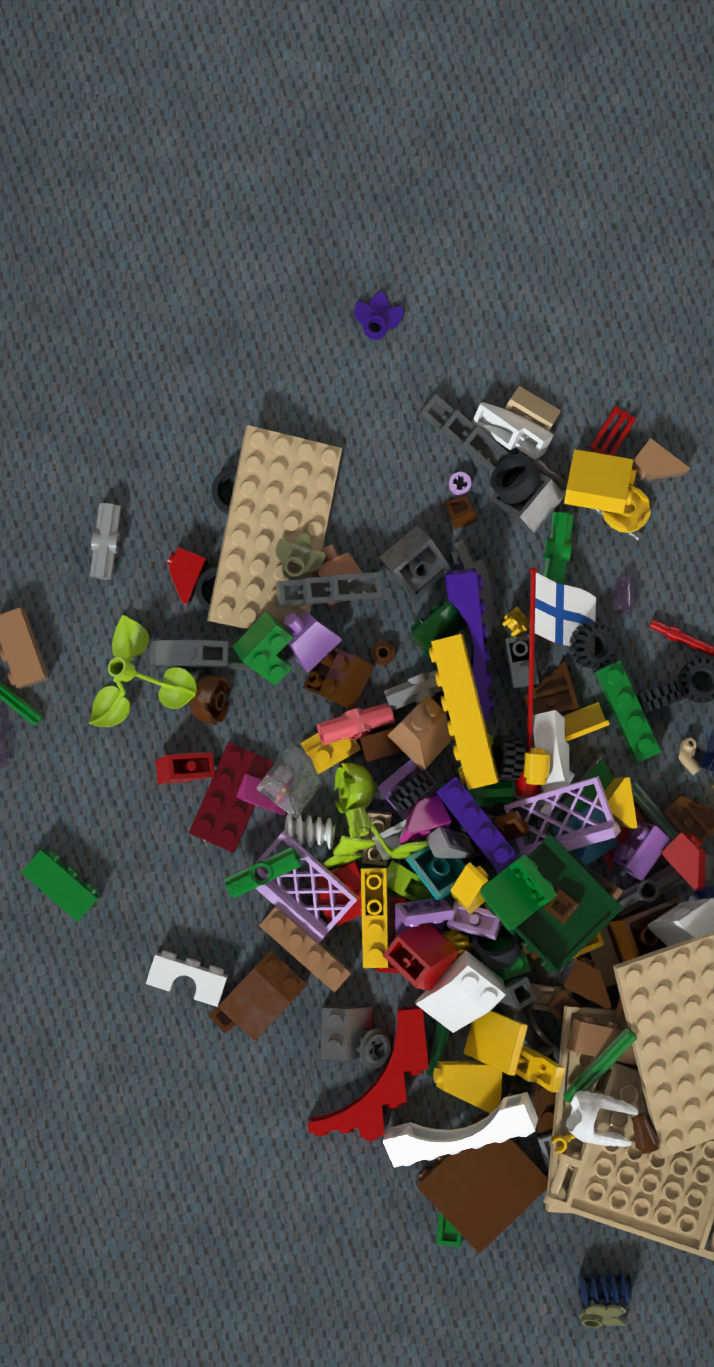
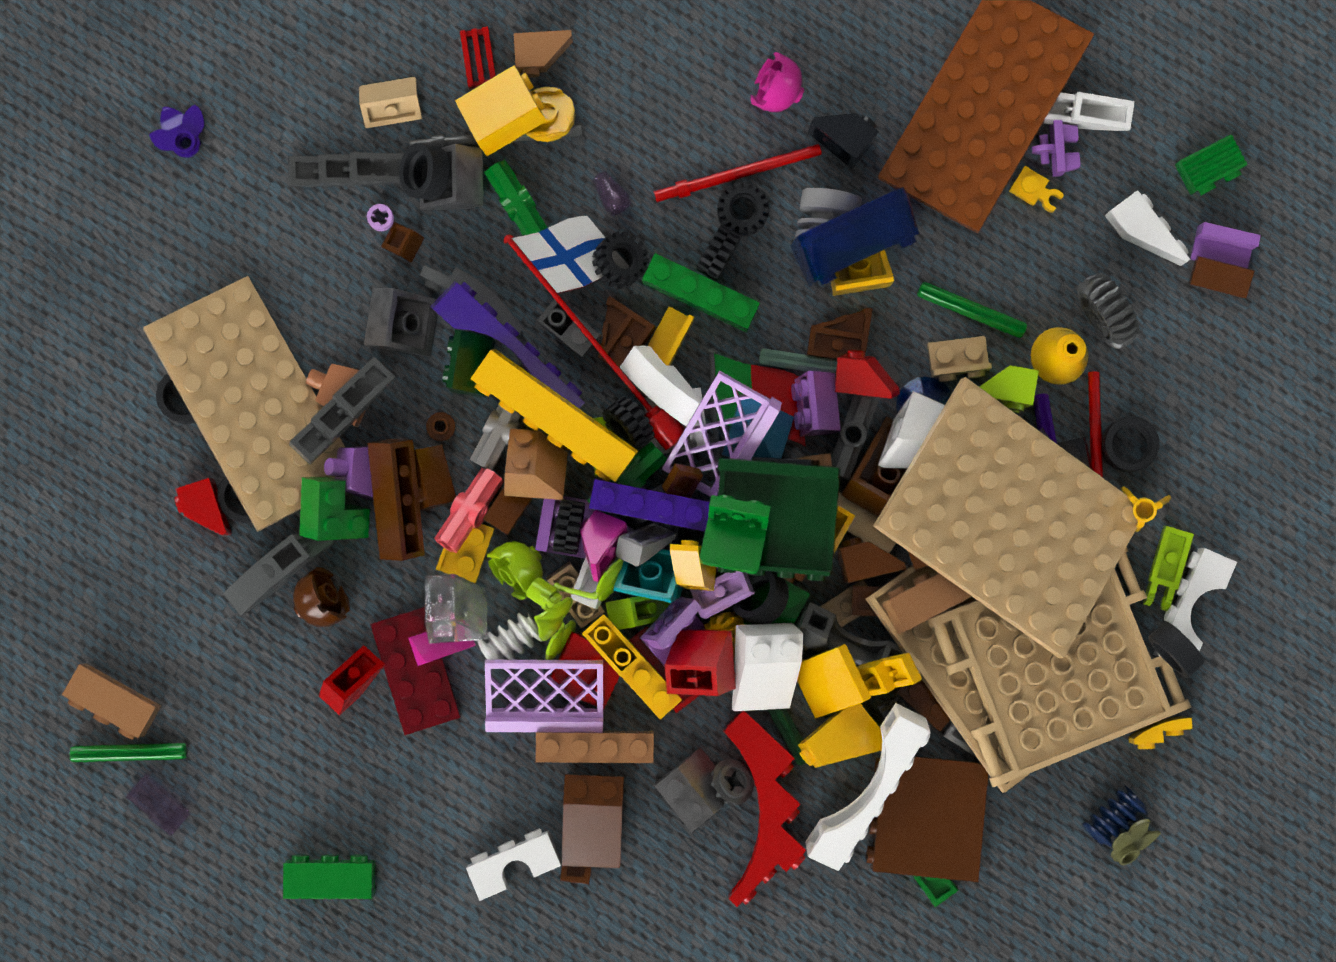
camera: 40 degrees left, 0 degrees up
(105, 541) = (106, 540): light grey piece -> none
(128, 641) = (205, 608): lime plant -> none
(249, 878) = (491, 727): green piece -> none
(298, 553) = (289, 401): olive plate -> none
(315, 677) = (396, 499): none -> reddish brown brick
(513, 430) = (386, 130): white slope -> none
(517, 622) = (534, 297): yellow plate -> none
(537, 766) = (659, 409): yellow brick -> none
(562, 906) = (785, 513): reddish brown tile -> none
(565, 1139) = (966, 714): yellow hand -> none
(584, 1113) = (959, 678): white piece -> none
(601, 1064) = (939, 624): green axle -> none
(621, 802) = (762, 378): yellow slope -> none
(644, 1135) = (1031, 651): reddish brown cone -> none
(672, 1255) = (1153, 733): none -> yellow slope
(687, 755) = (787, 286): tan arm -> none

